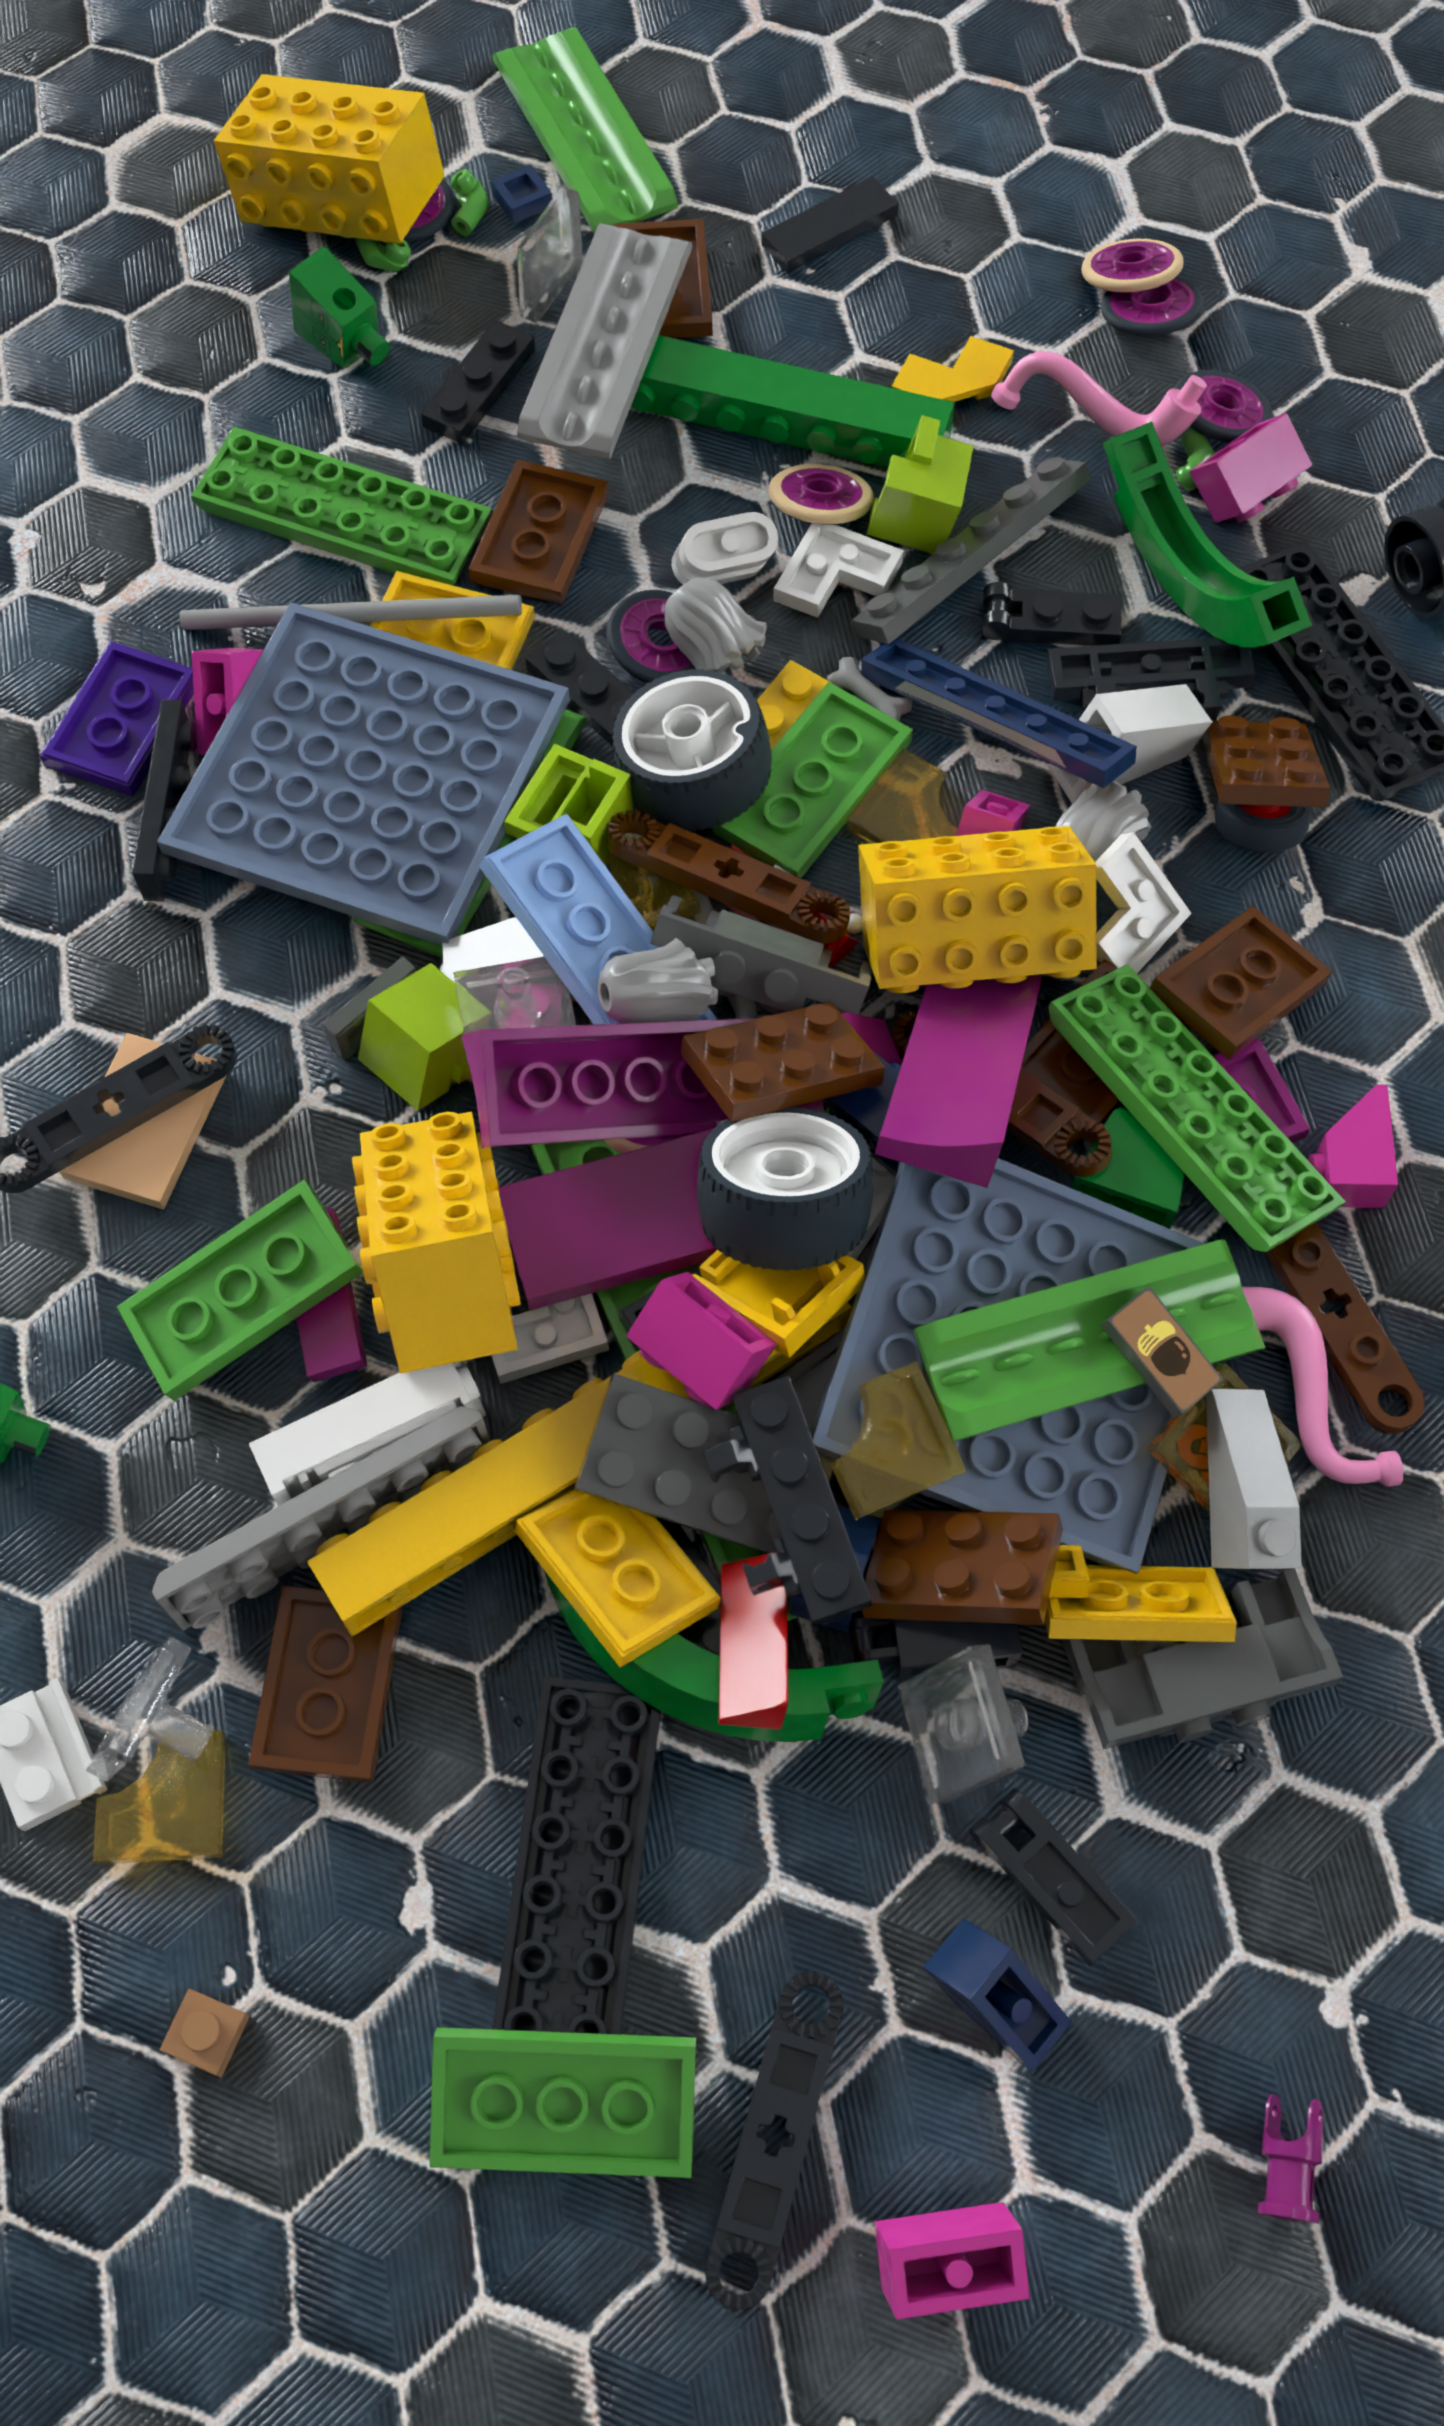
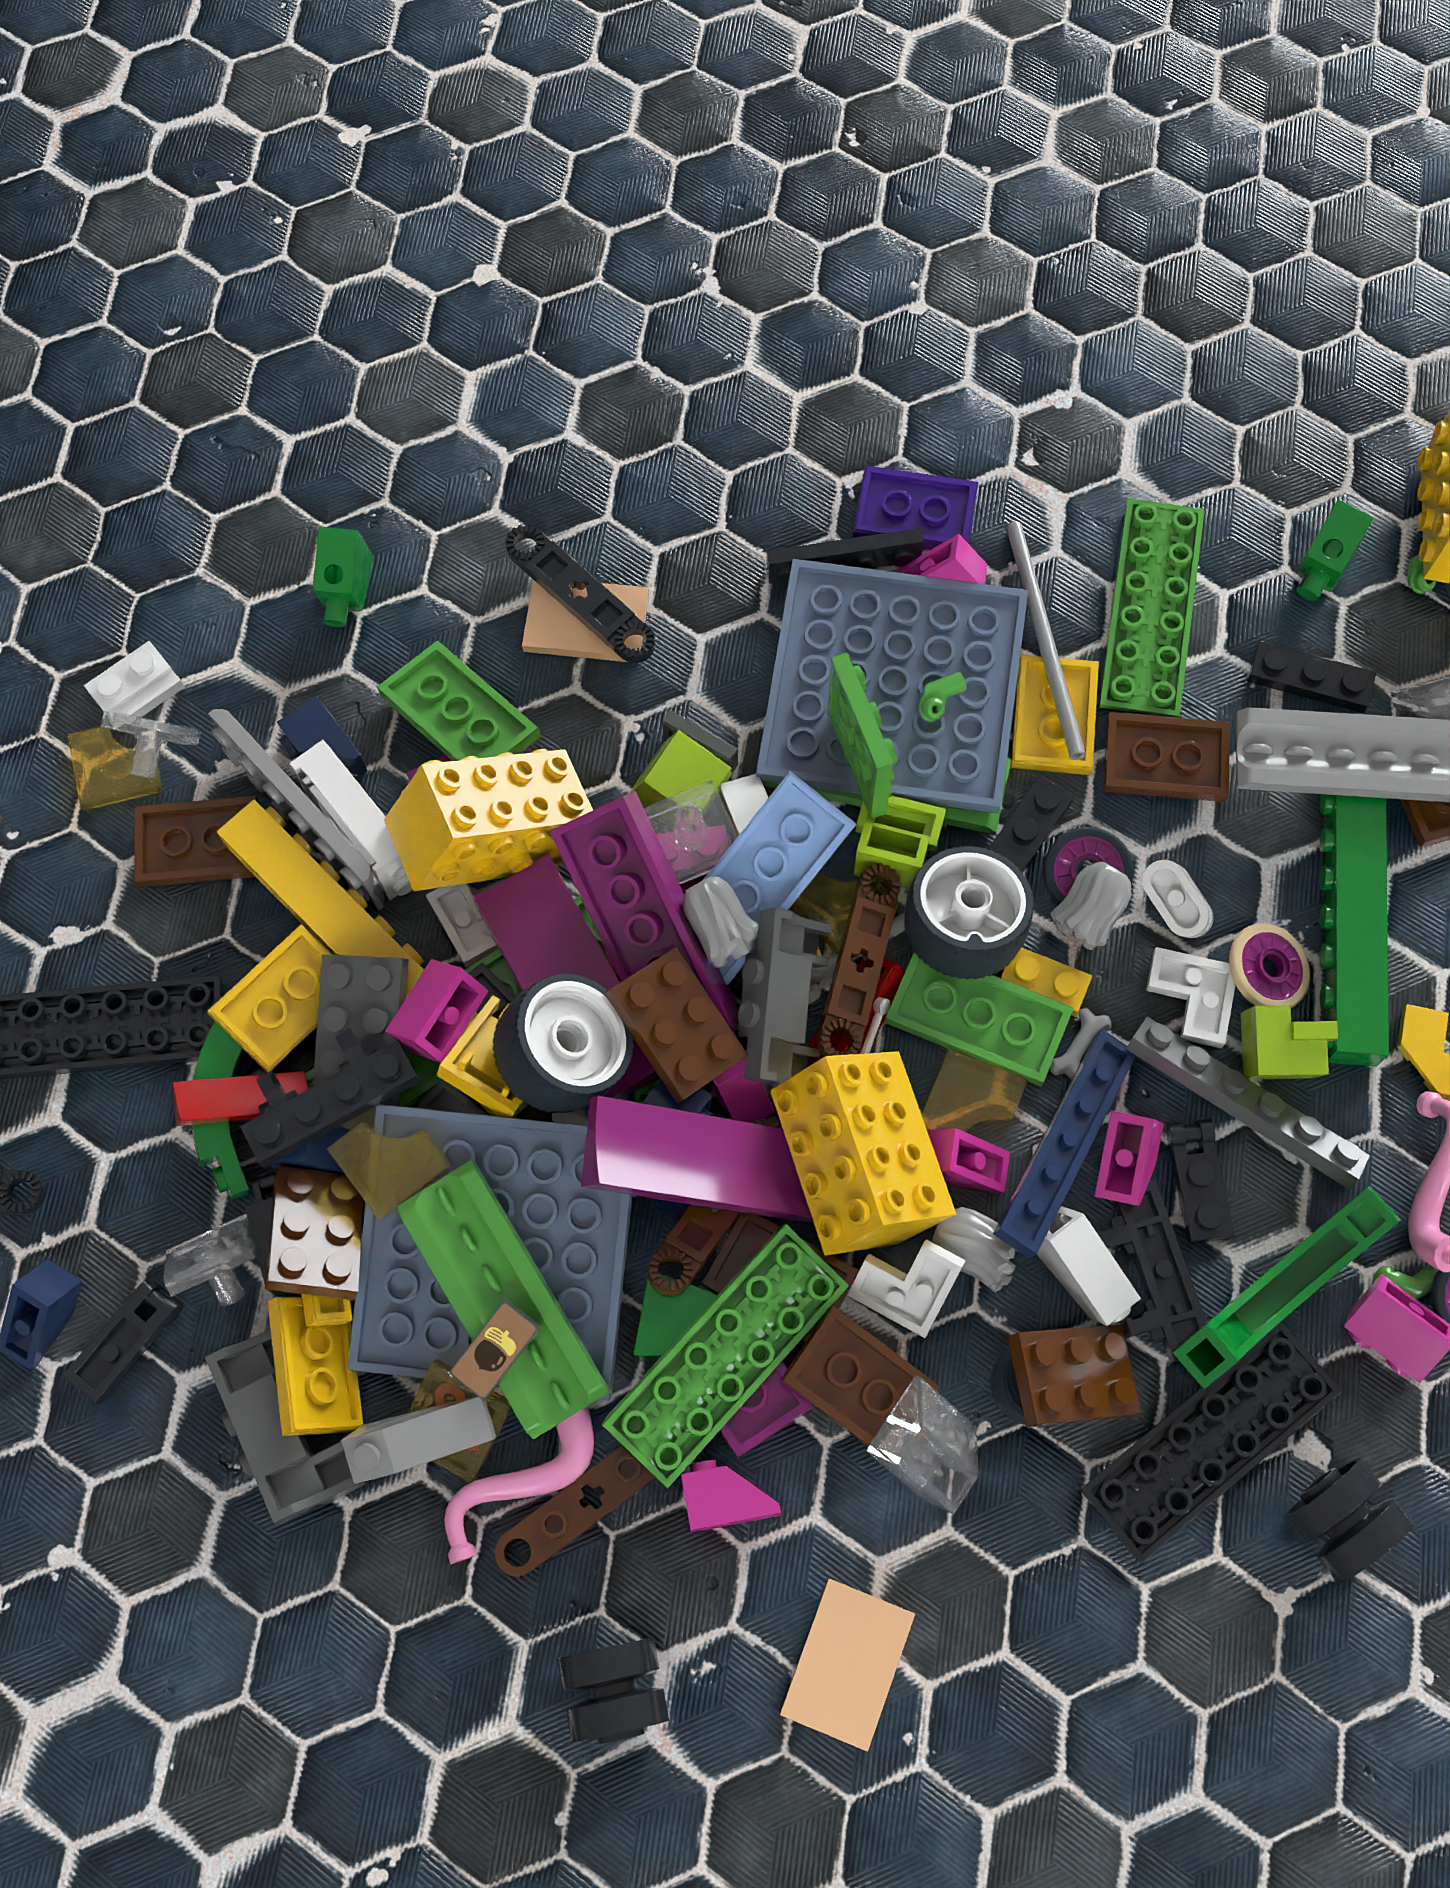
camera: 80 degrees right, 5 degrees up
(216, 1488) = (313, 724): none -> dark blue slope
(405, 719) = (936, 693): none -> bright green arm
(455, 777) = (859, 734): none -> bright green plate
(1023, 661) = (1128, 1157): none -> dark pink slope
(1331, 923) = (928, 1447): none -> clear slope

